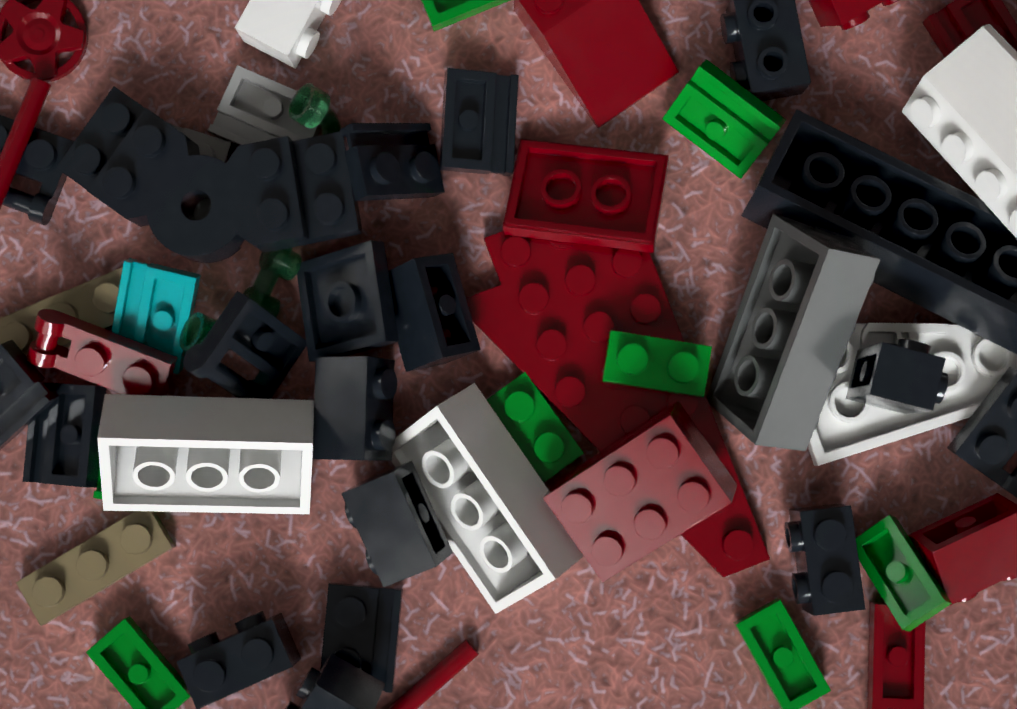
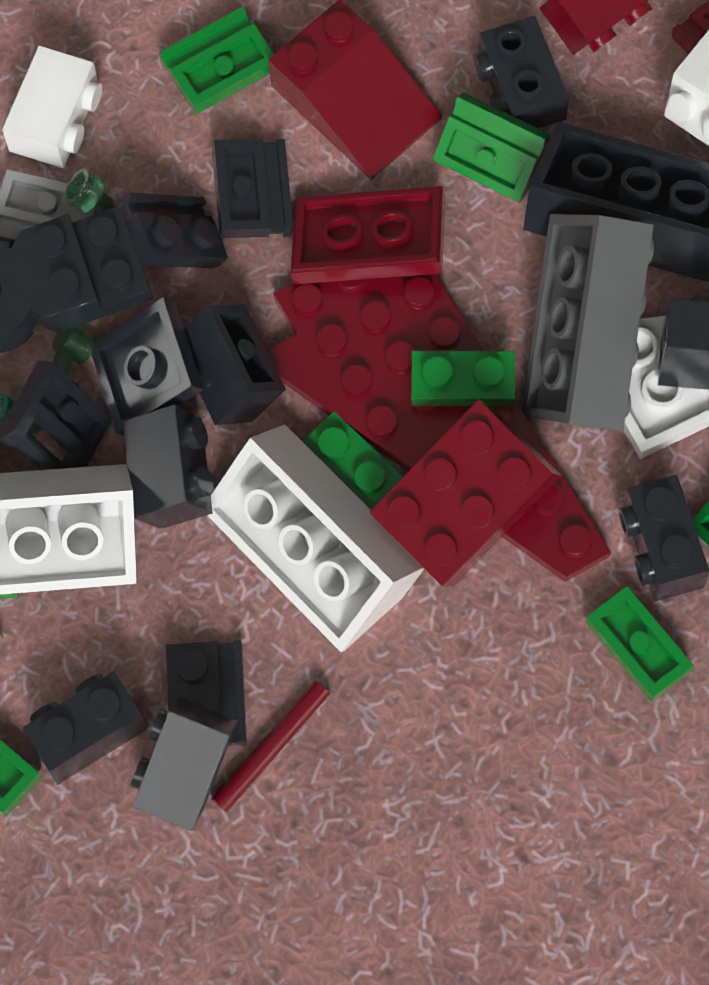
camera: 10 degrees left, 15 degrees down
(396, 524) = (225, 569): black brick -> none

